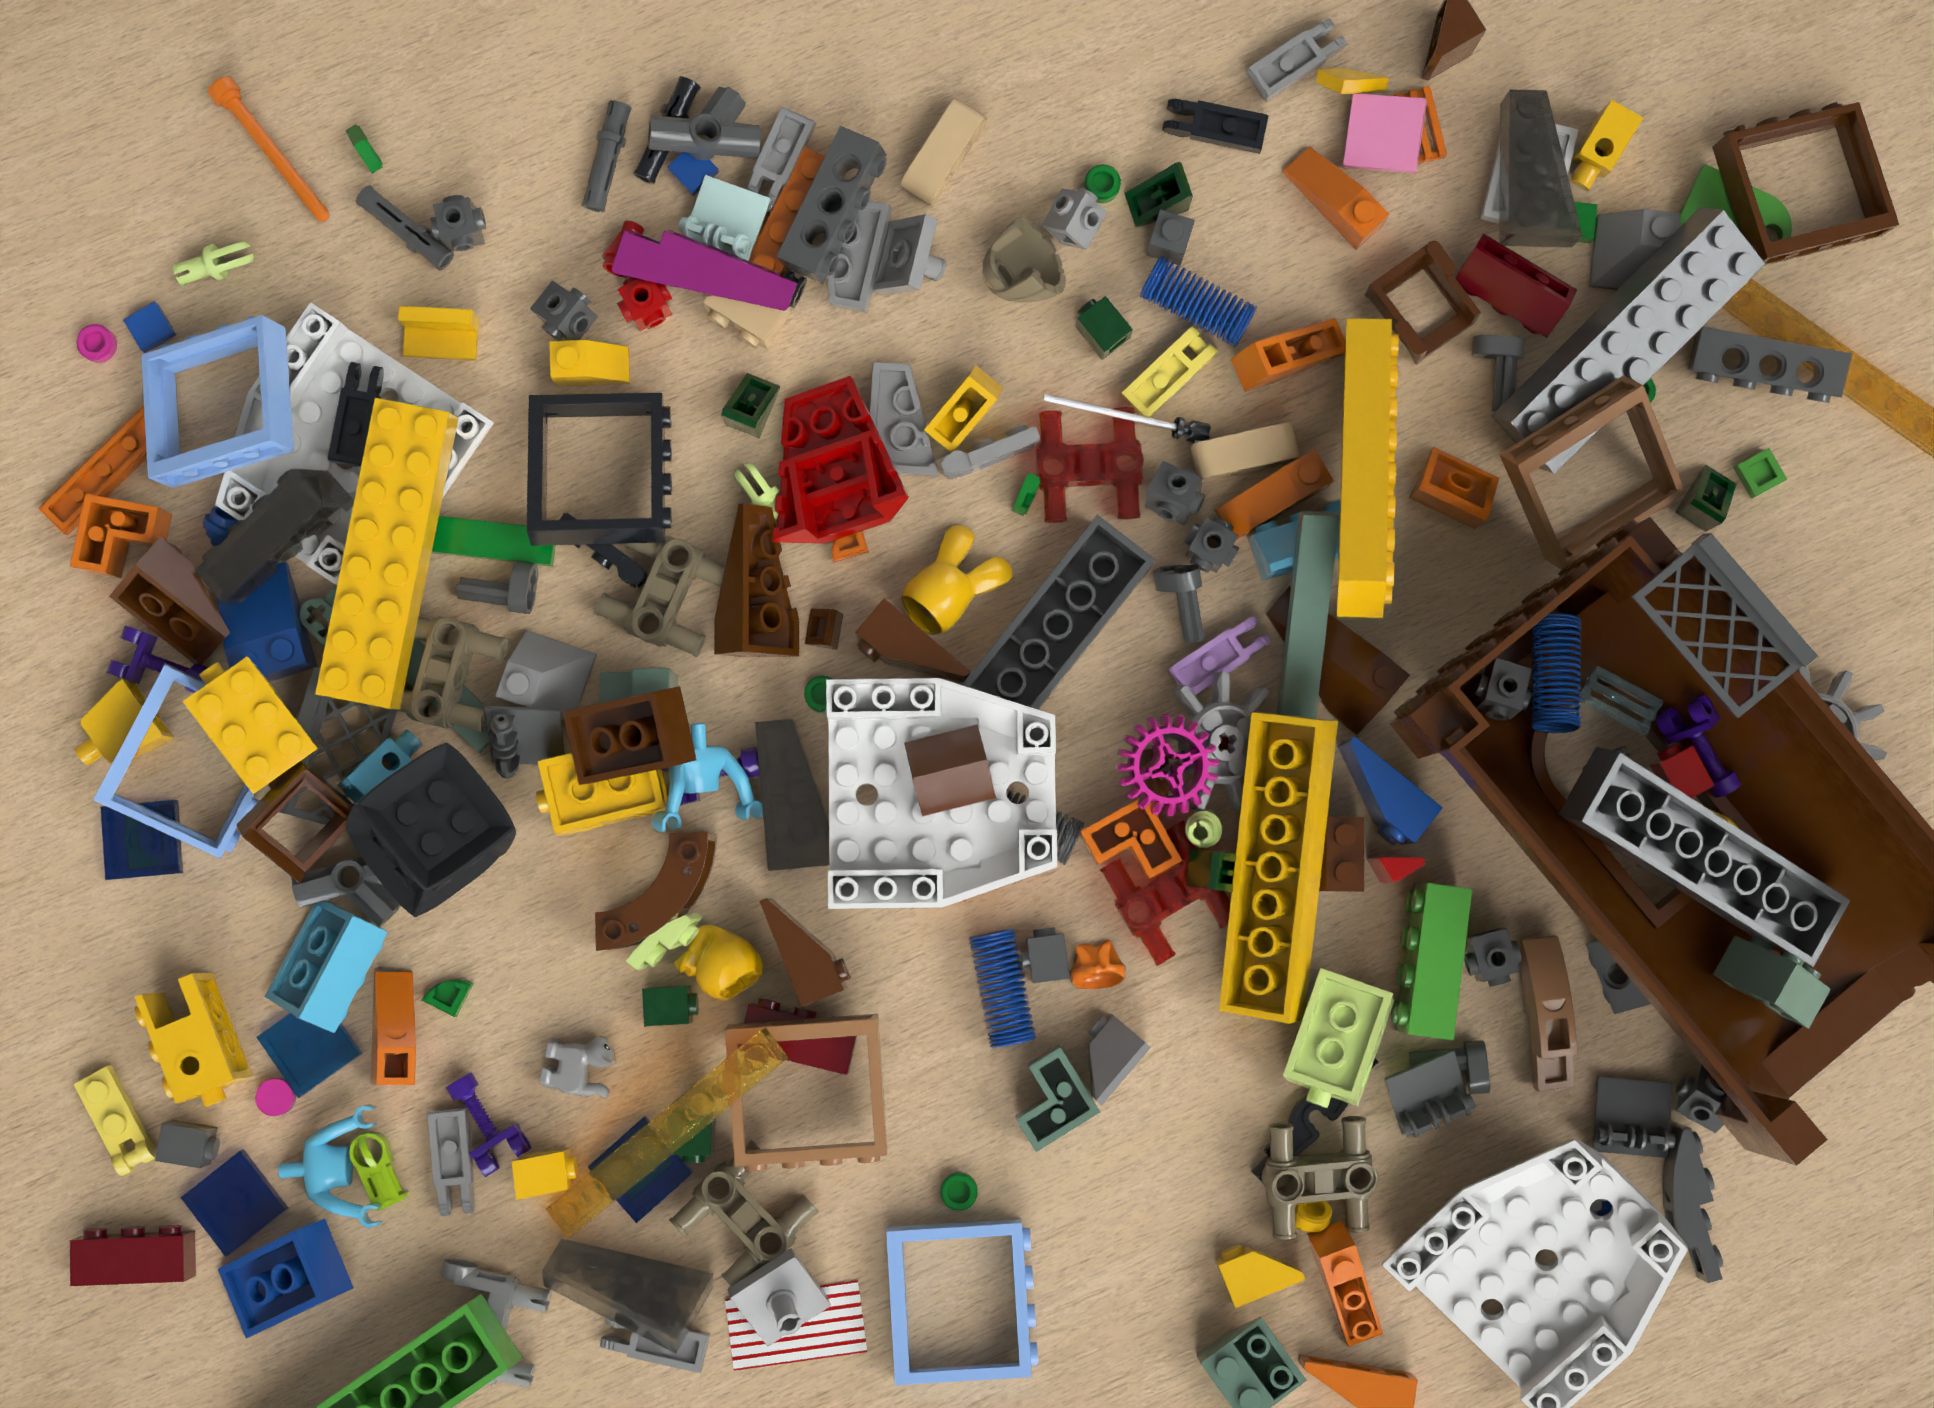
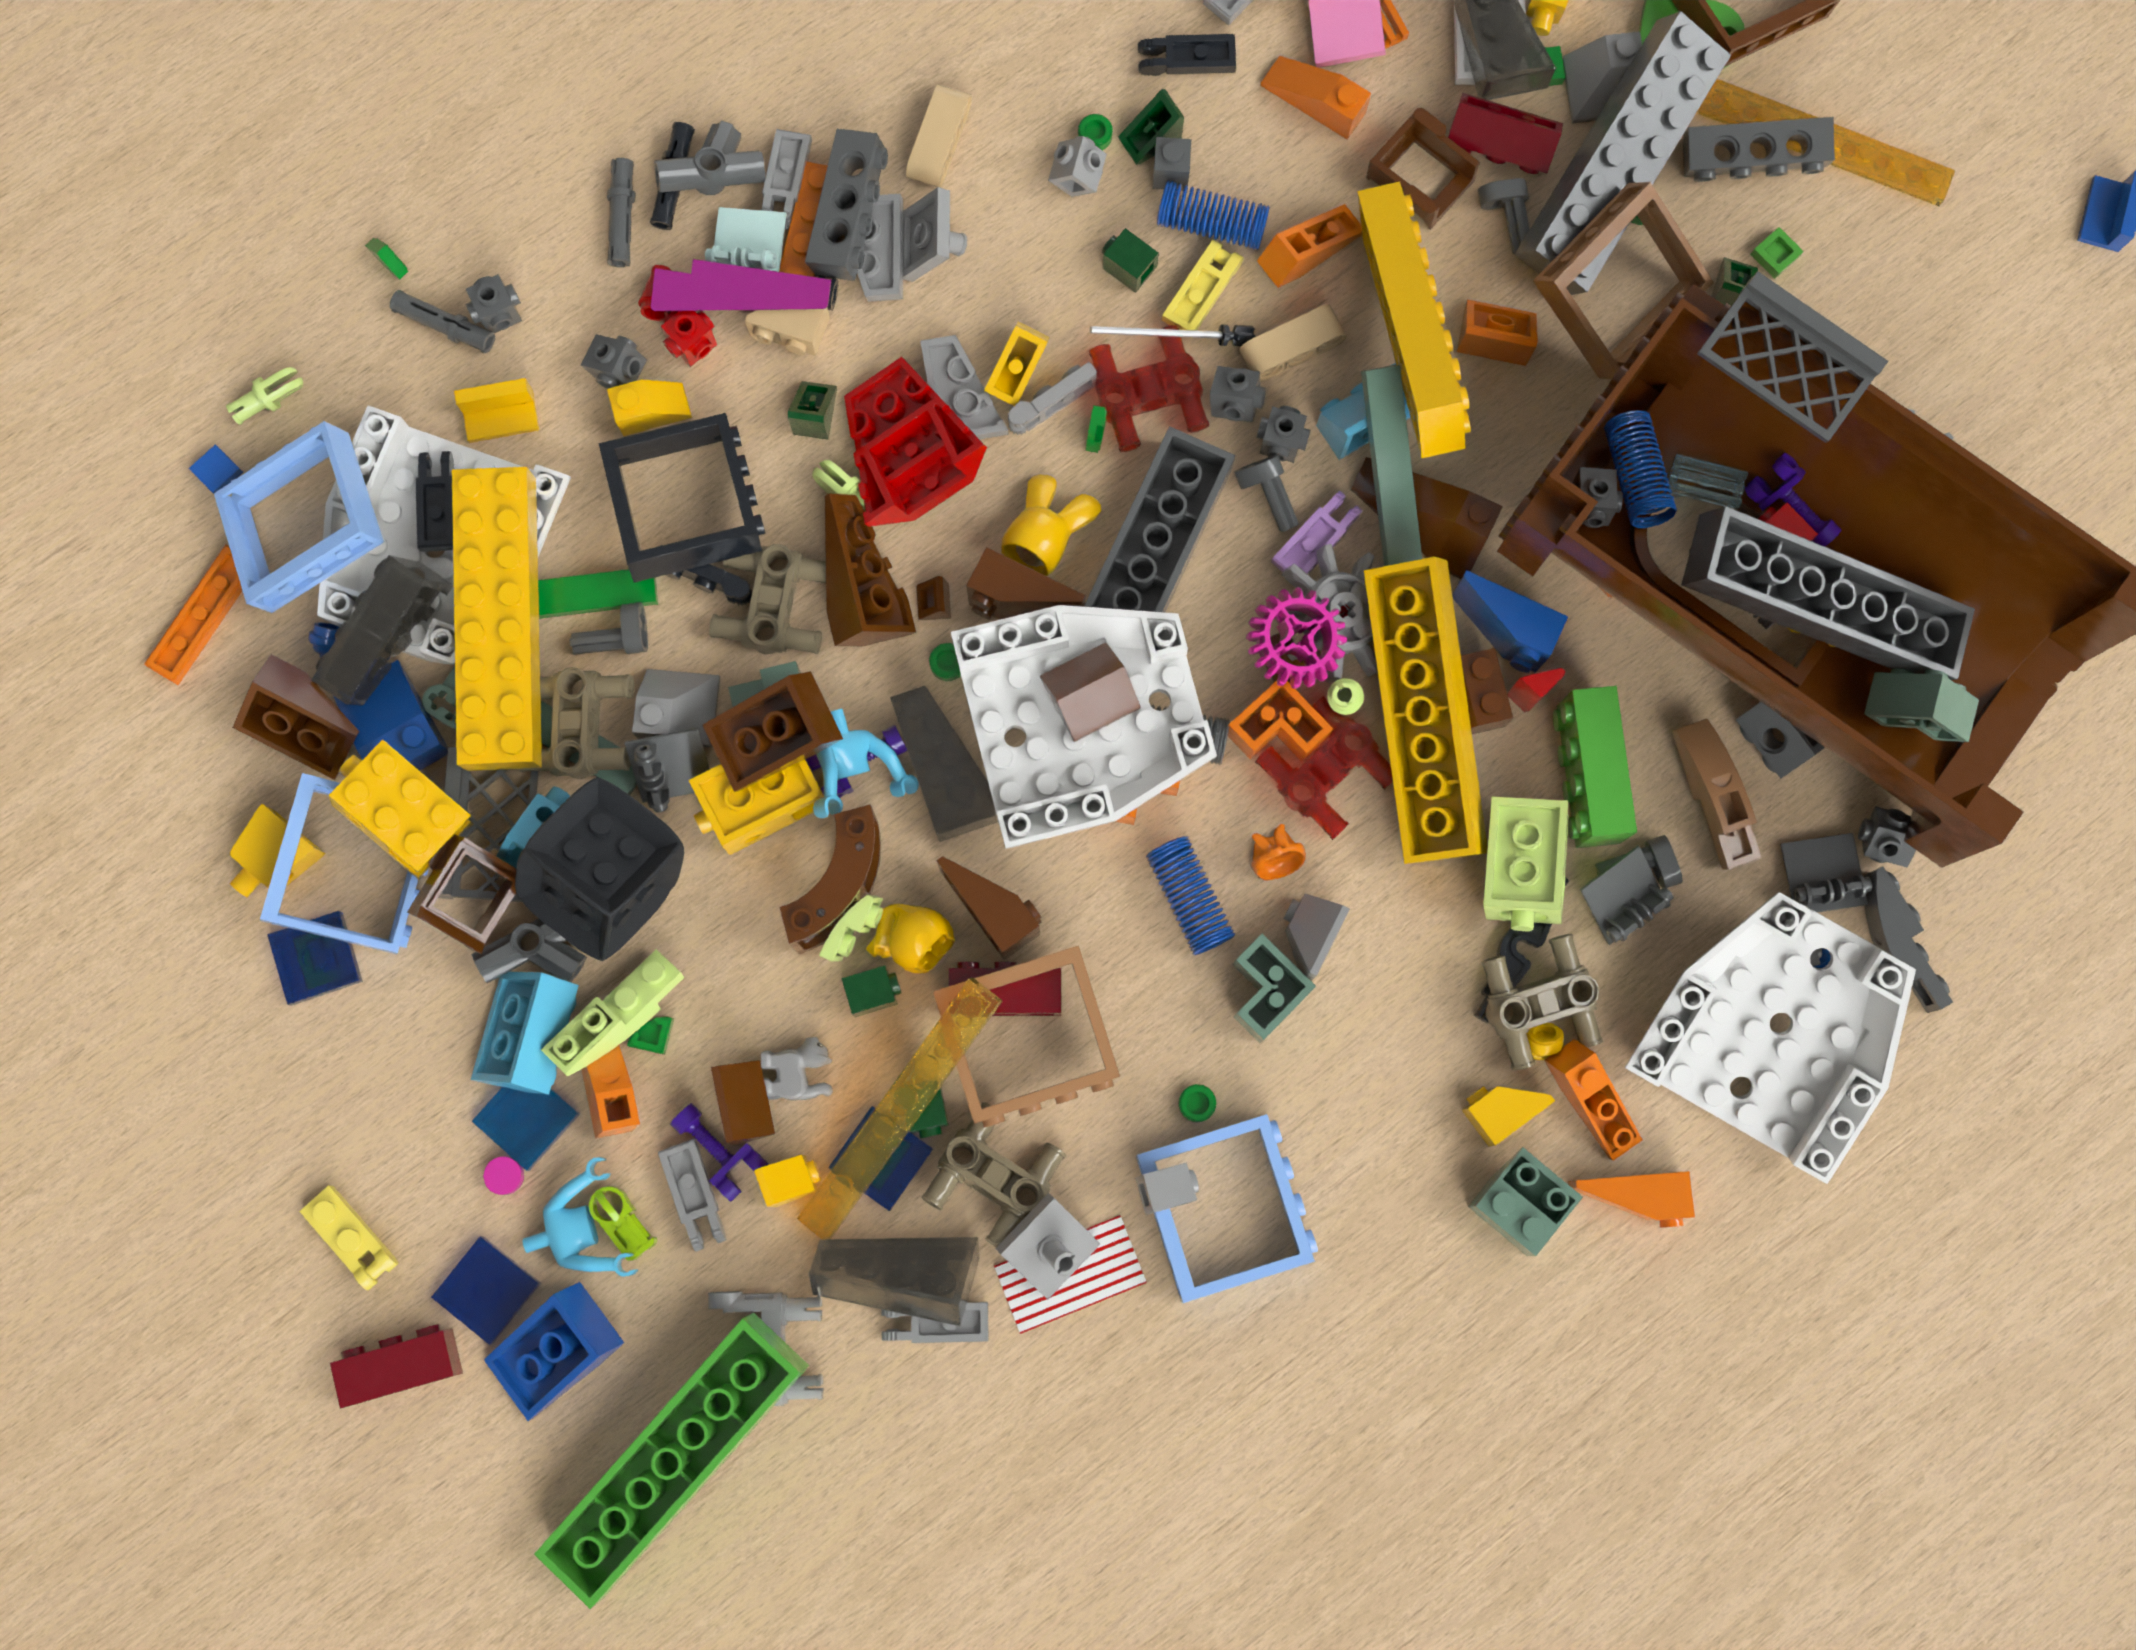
camera: 15 degrees left, 5 degrees down
(96, 343) = (167, 497): dark pink tile -> none
(107, 530) = (219, 662): orange brick -> none
(144, 659) = (277, 782): dark purple bar -> none
(187, 1144) = (426, 1241): dark grey brick -> none
(199, 1050) = (412, 1139): yellow torso -> none
(227, 94) = (243, 238): orange piece -> none
(414, 973) = (615, 1018): none -> yellowish green slope
(517, 1087) = (743, 1102): none -> reddish brown slope
(691, 171) = (704, 208): blue tile -> none
(849, 547) = (939, 518): orange tile -> none
(906, 1274) = (1167, 1188): none -> light grey brick
(1023, 264) = (1039, 219): dark tan hair -> none
(1046, 956) = (1225, 855): dark grey brick -> none
(1211, 870) = (1363, 729): dark green slope -> none
(1276, 494) = (1334, 371): orange slope -> none
(1505, 952) = (1651, 752): dark grey brick -> none

